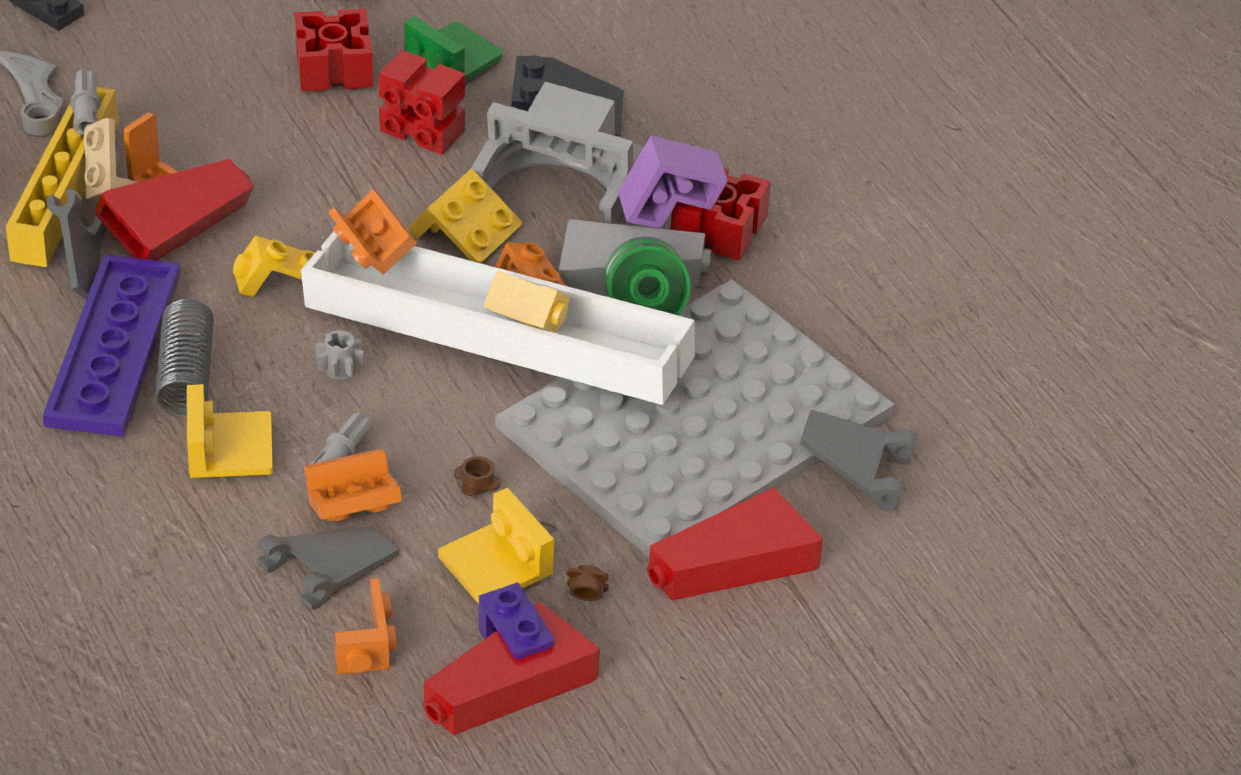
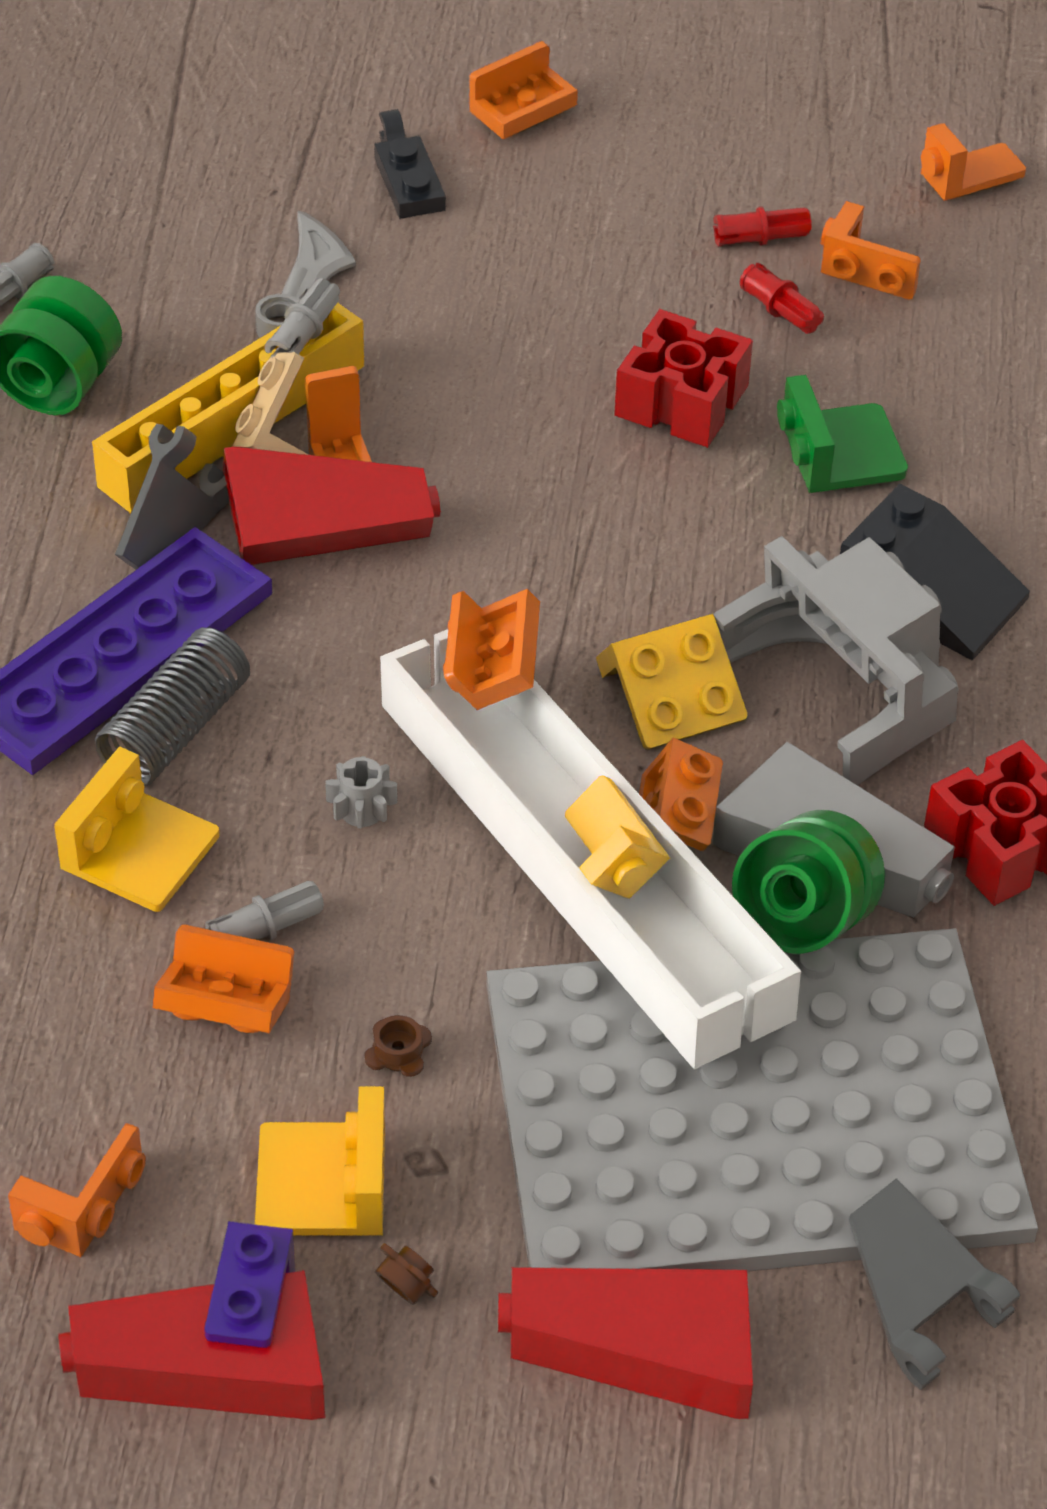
camera: 35 degrees right, 5 degrees up
(263, 257) = (378, 621): yellow bracket -> none
(332, 557) = (132, 1064): dark grey flag -> none
(422, 102) = (728, 494): red brick -> none
(667, 175) = (943, 745): medium lavender brick -> none

